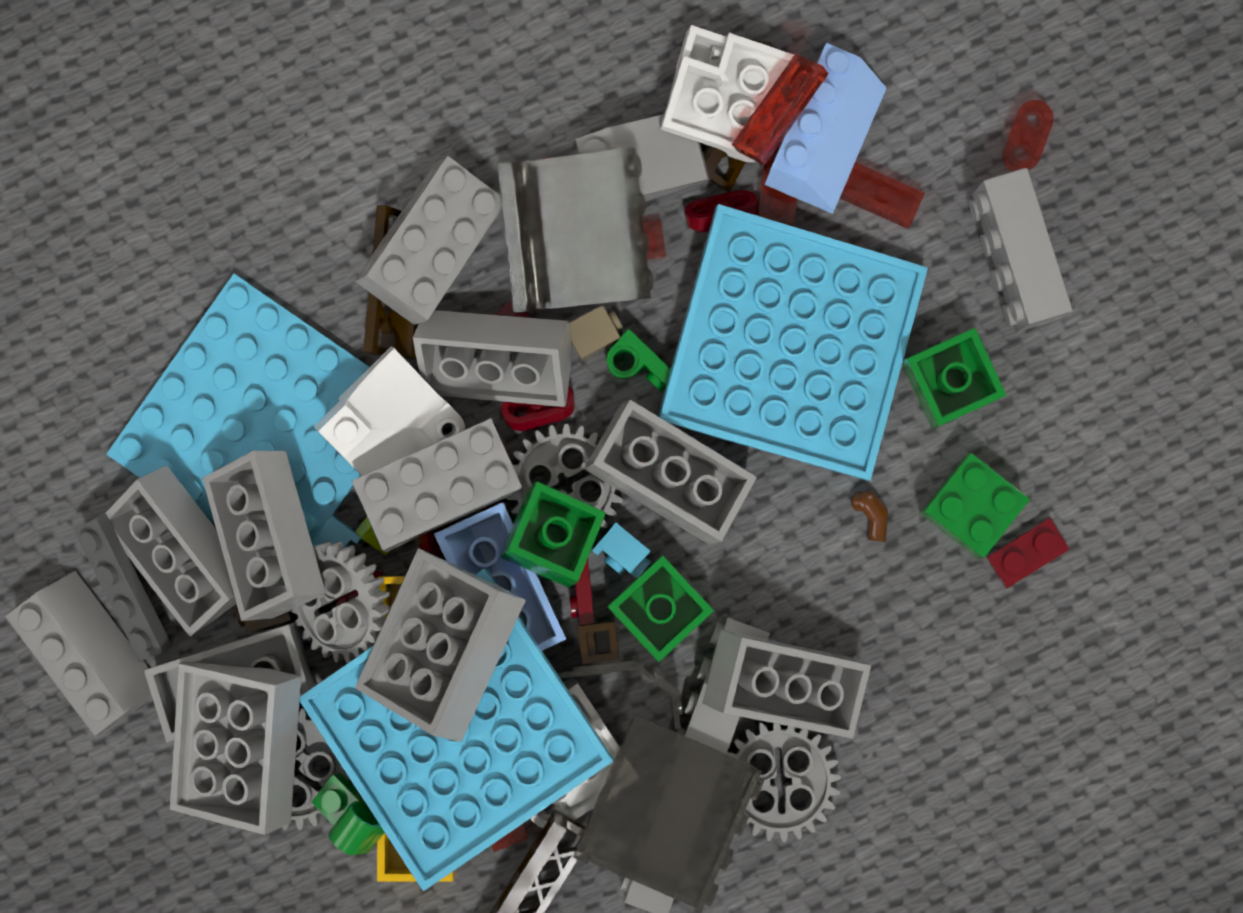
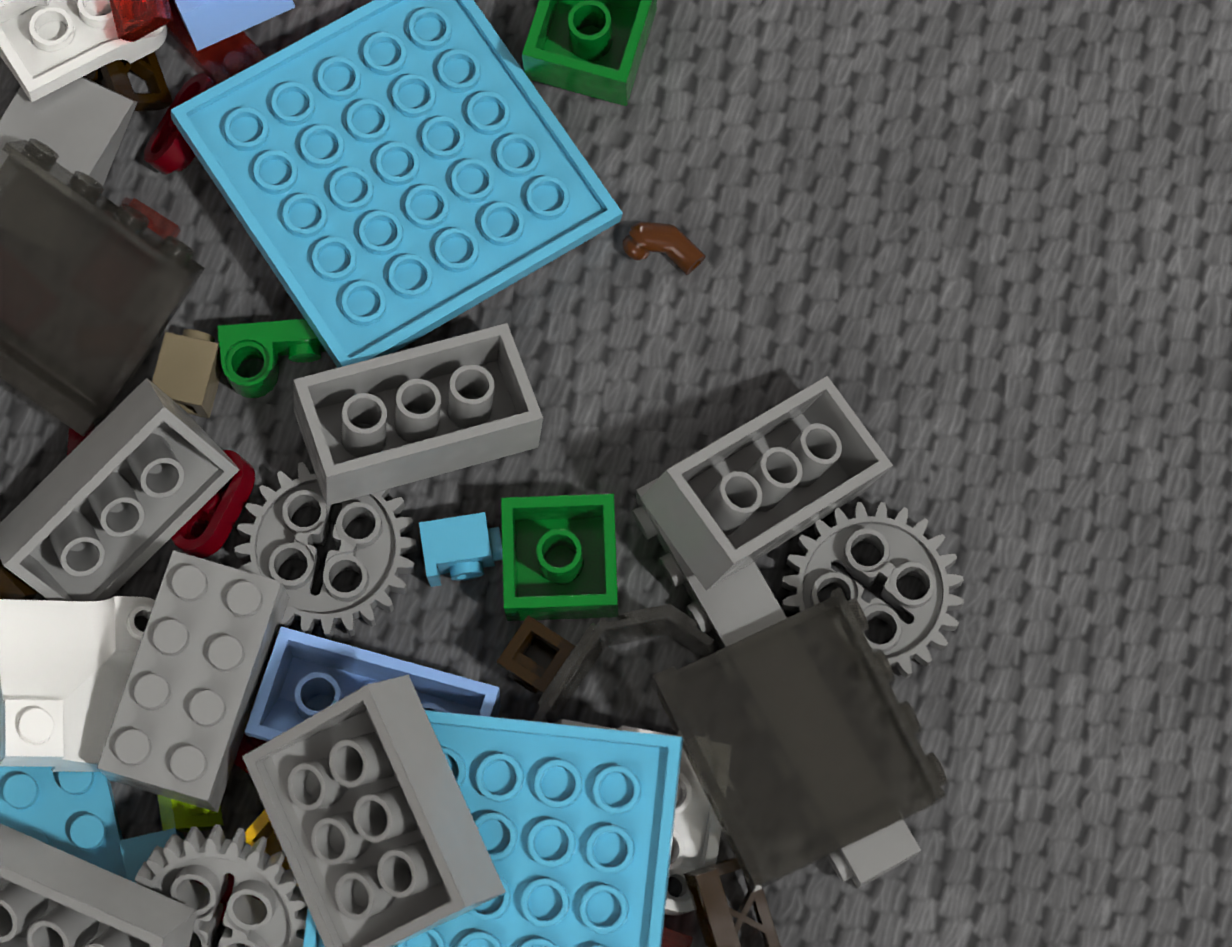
camera: 50 degrees left, 10 degrees down
(552, 534) = (366, 595): green brick -> none
(582, 602) = (438, 615): dark red plate -> none
(974, 506) = (749, 126): green brick -> none
(1027, 553) = (851, 118): dark red plate -> none

